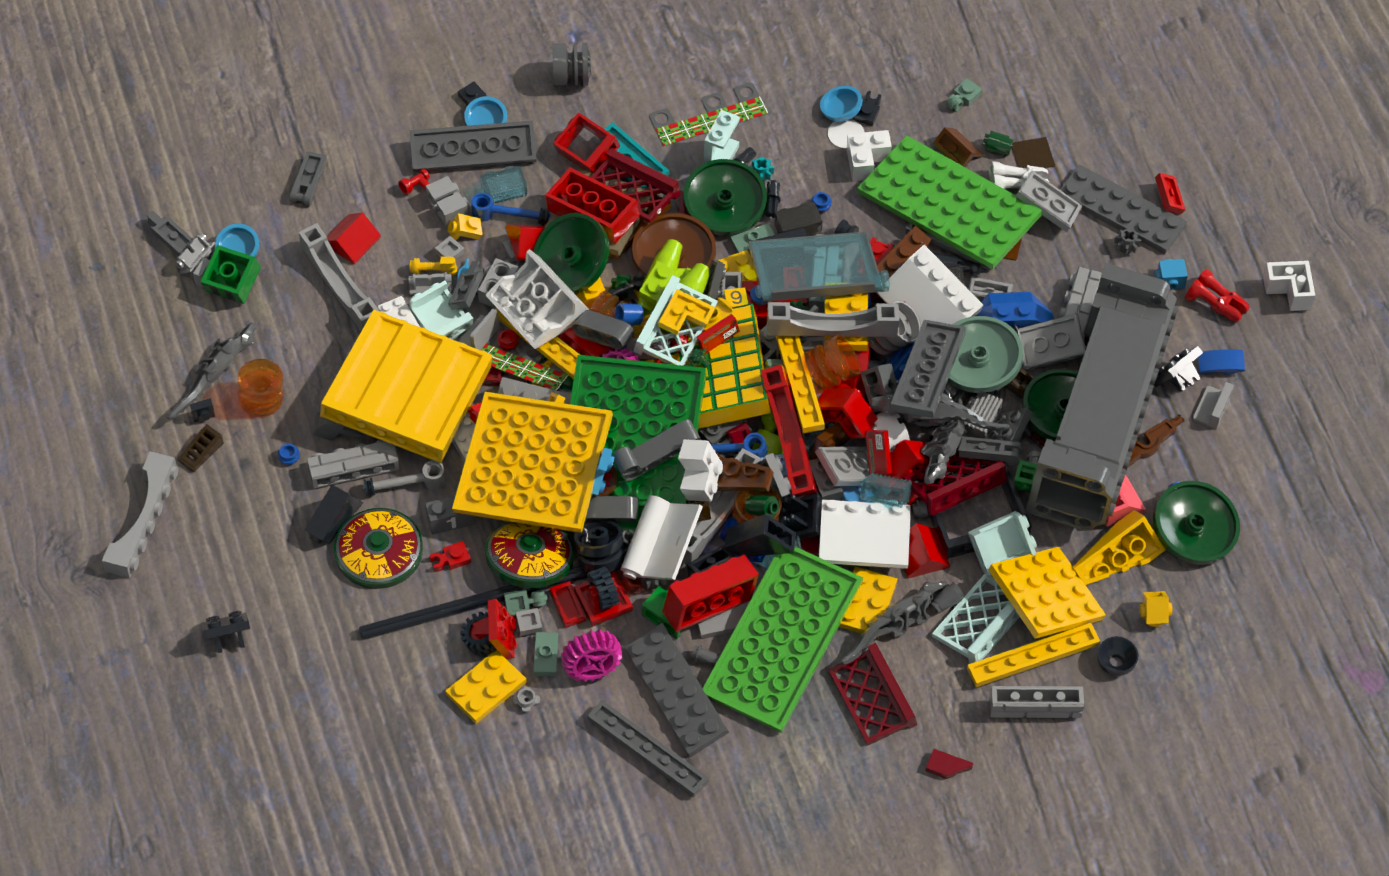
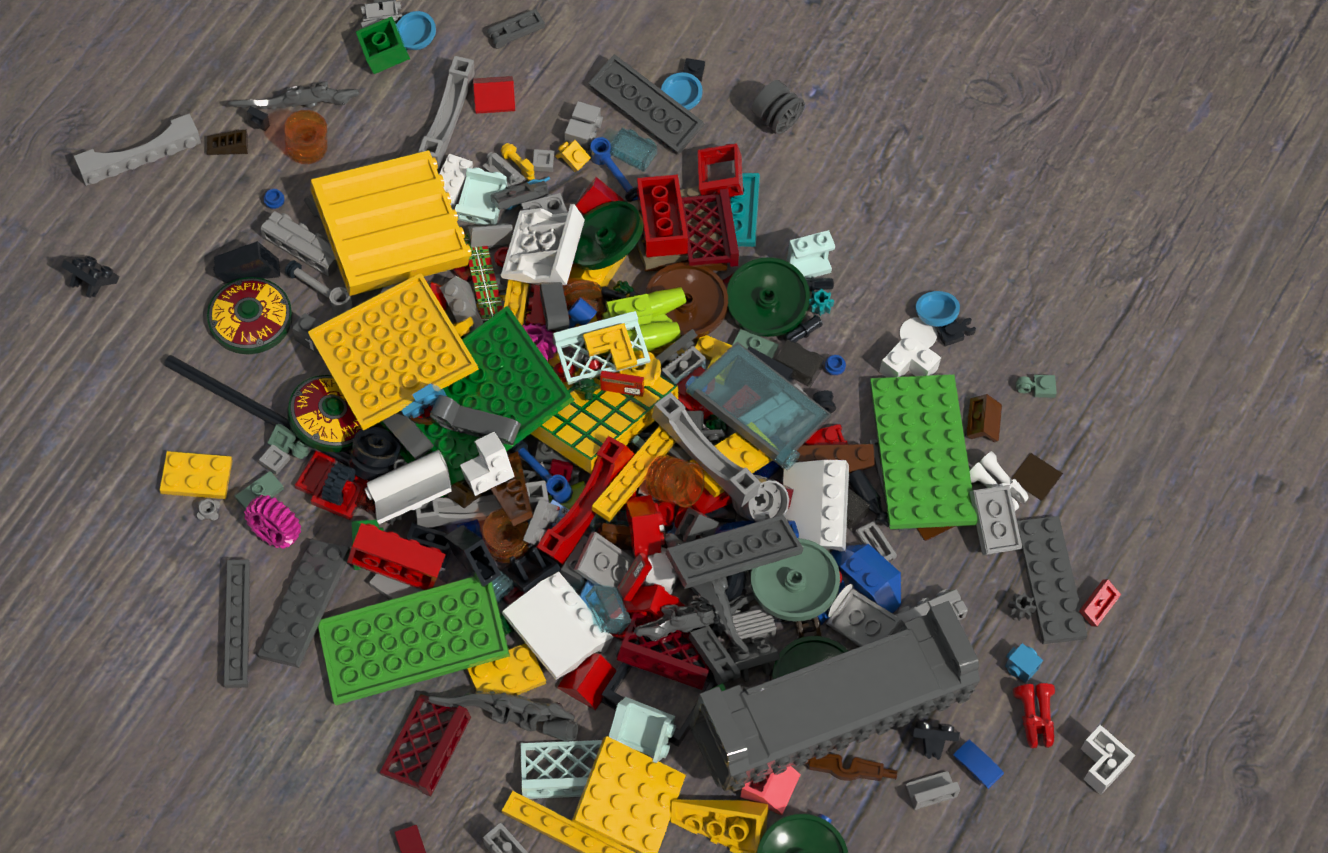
camera: 45 degrees right, 5 degrees up
(406, 185) = (587, 95): red piece -> none
(453, 556) = (287, 369): red plate -> none
(491, 631) = (240, 442): red plate -> none
(673, 132) = (843, 238): piece -> none
(705, 656) = (352, 596): dark grey pin -> none
(736, 296) = (676, 372): yellow tile -> none
(761, 504) = (503, 533): dark green brick -> none
(997, 143) = (1016, 443): dark green brick -> none

